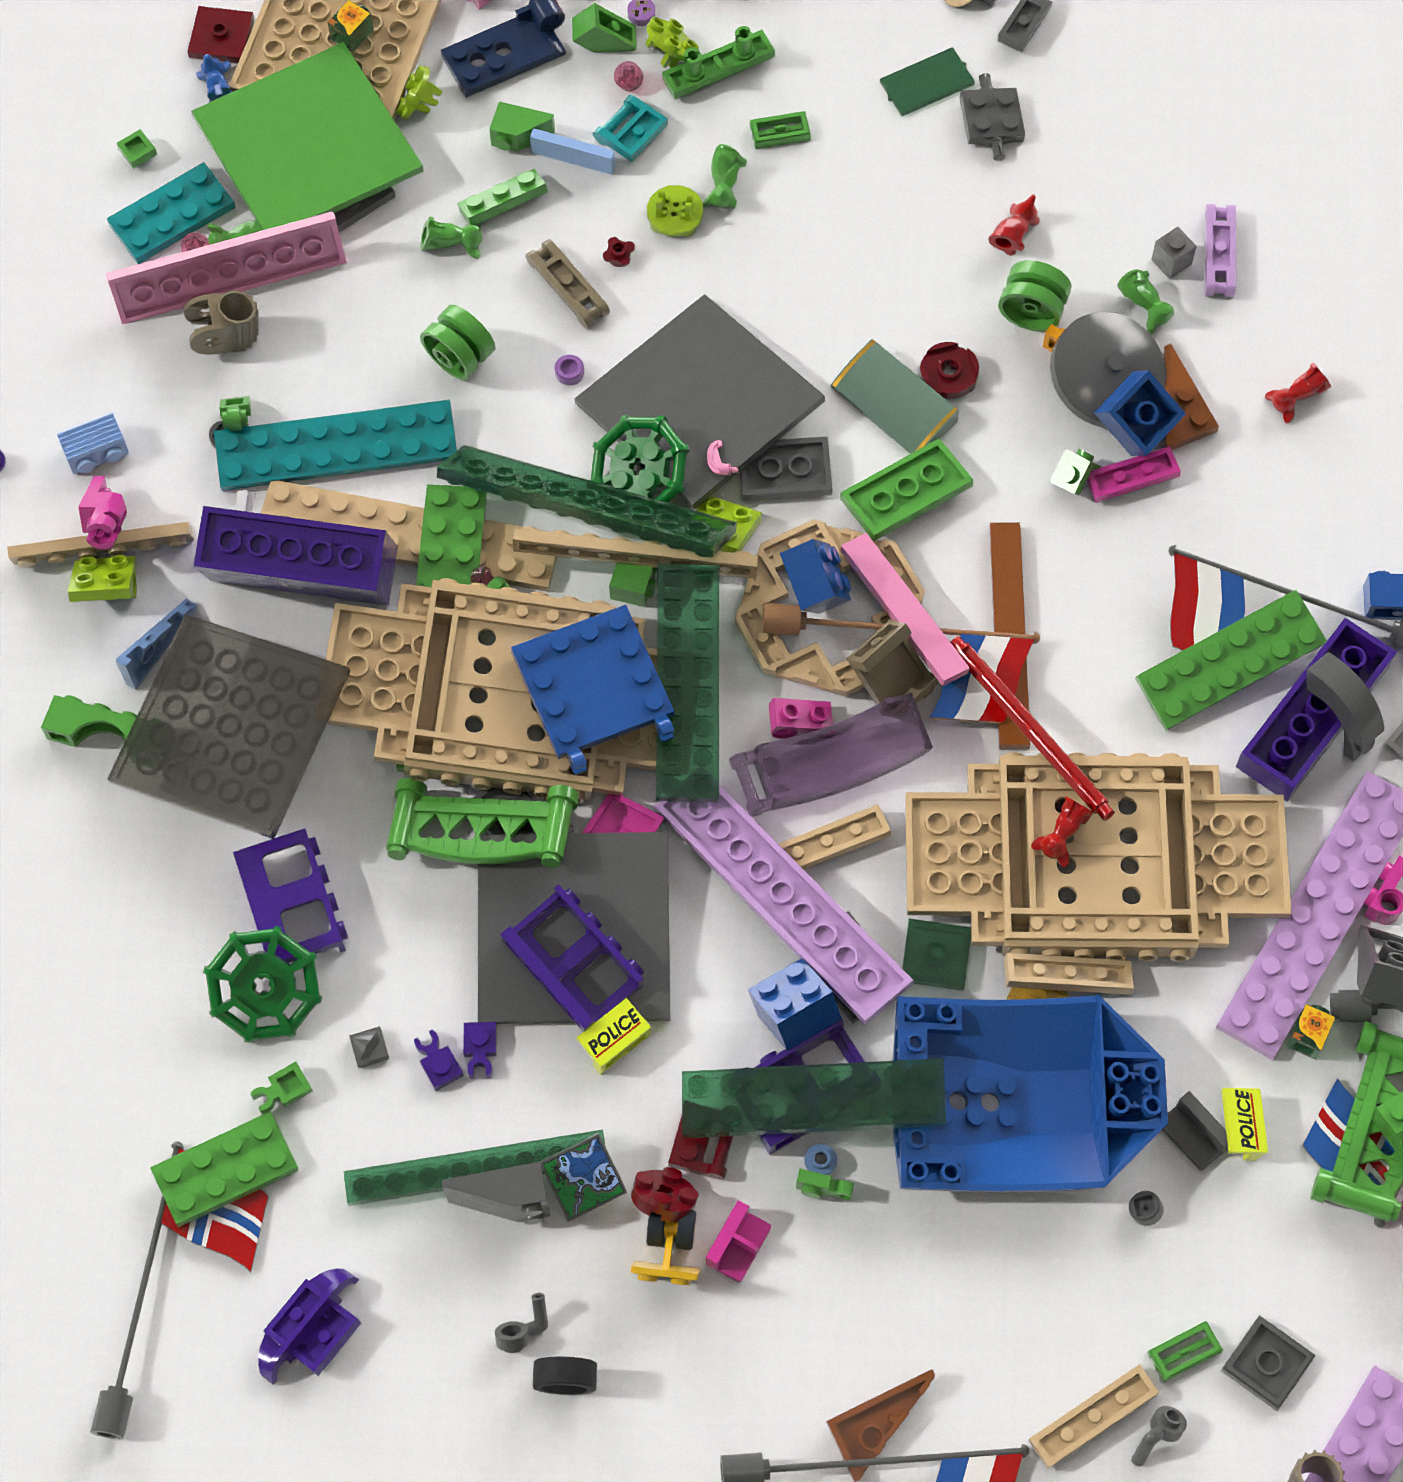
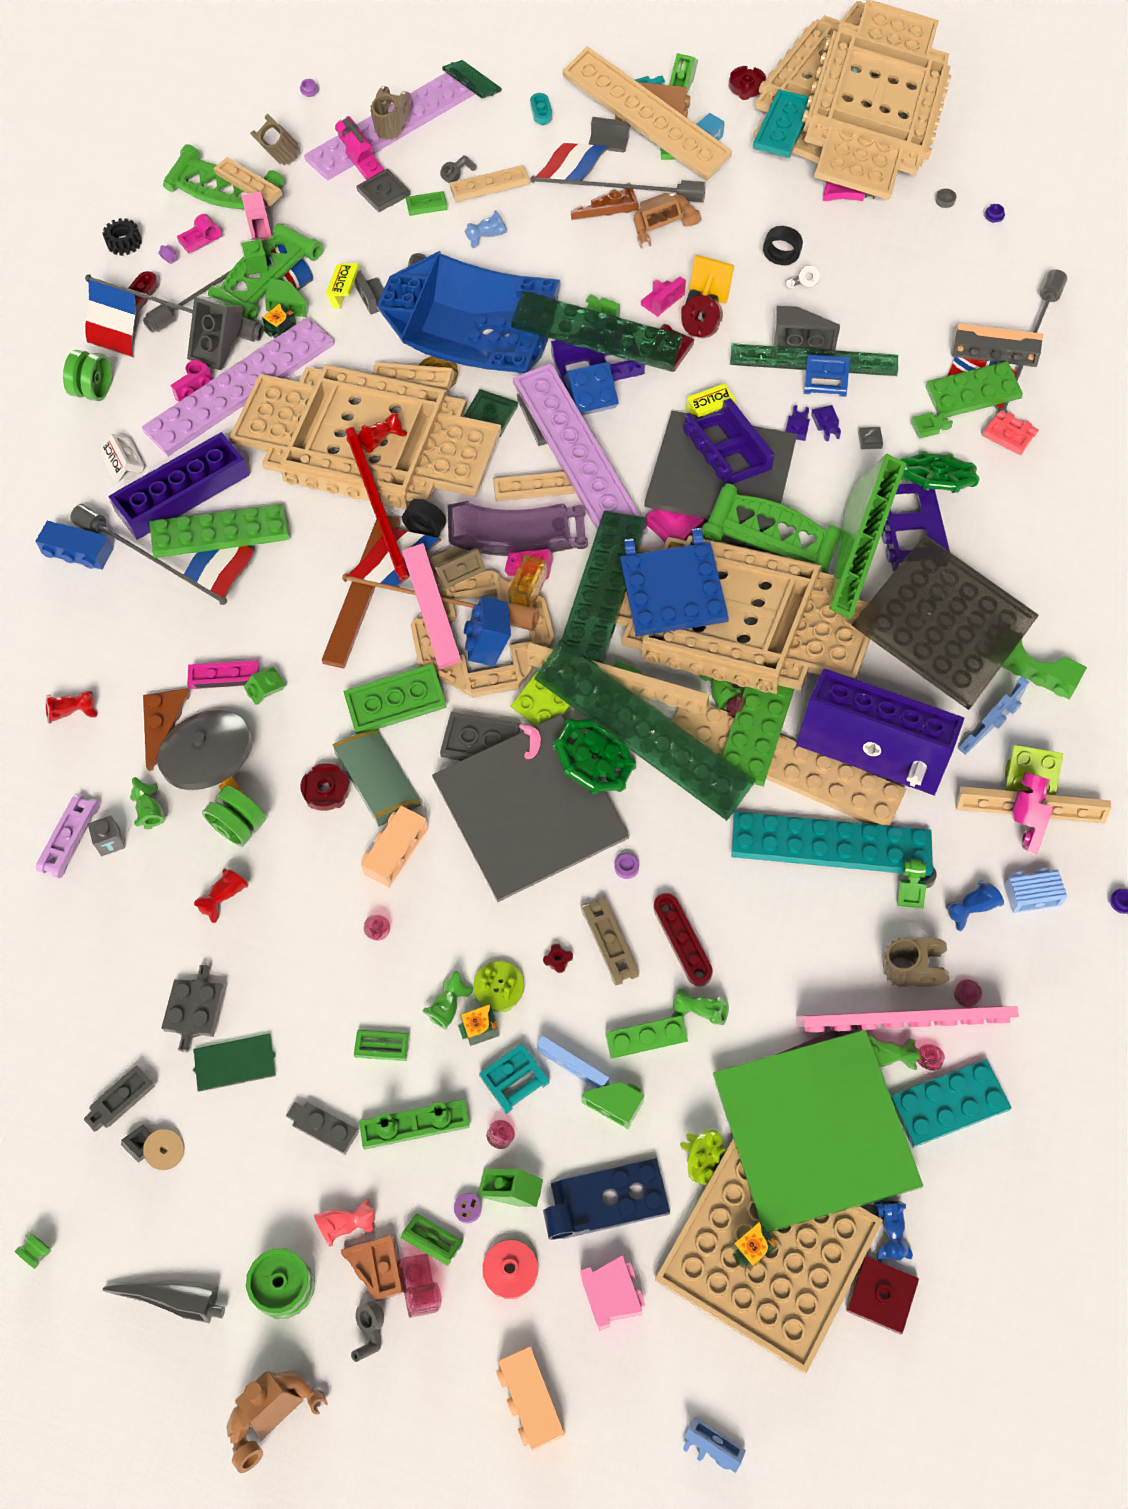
camera: 165 degrees left, 5 degrees down
(136, 148) = (978, 1177): bright green plate -> none
(155, 414) = (980, 900): none -> blue animal
(161, 323) = (967, 993): none -> clear pink tile
(165, 1095) = (1010, 432): none -> coral plate
(194, 1252) = (997, 345): none -> dark grey piece
(309, 1326) = (927, 304): dark purple plate -> none
(351, 849) = (861, 531): none -> bright green slope
(450, 1134) = (827, 368): none -> blue plate
(457, 342) = (716, 891): bright green wheel -> none
(486, 301) = (682, 939): none -> dark red plate
(583, 1177) = (749, 337): tile -> none
(670, 39) = (450, 1155): lime plate -> none
(682, 163) = (478, 1025): none -> brick
(784, 1403) = (661, 211): none -> medium nougat torso
(787, 659) = (528, 581): none -> clear yellow brick
(812, 45) = (322, 1126): none -> dark grey hinge
(828, 235) = (376, 927): none -> clear pink tile
(841, 321) = (394, 846): none -> light nougat brick
(961, 734) = (432, 521): none -> black tyre
(1047, 1319) = (487, 227): none -> medium blue animal
(1140, 413) = (199, 698): blue brick -> none
(1321, 1073) = (287, 295): none -> bright green slope
(1336, 1413) = (358, 148): none -> dark pink plate
(1350, 701) = (160, 468): dark grey arch -> none

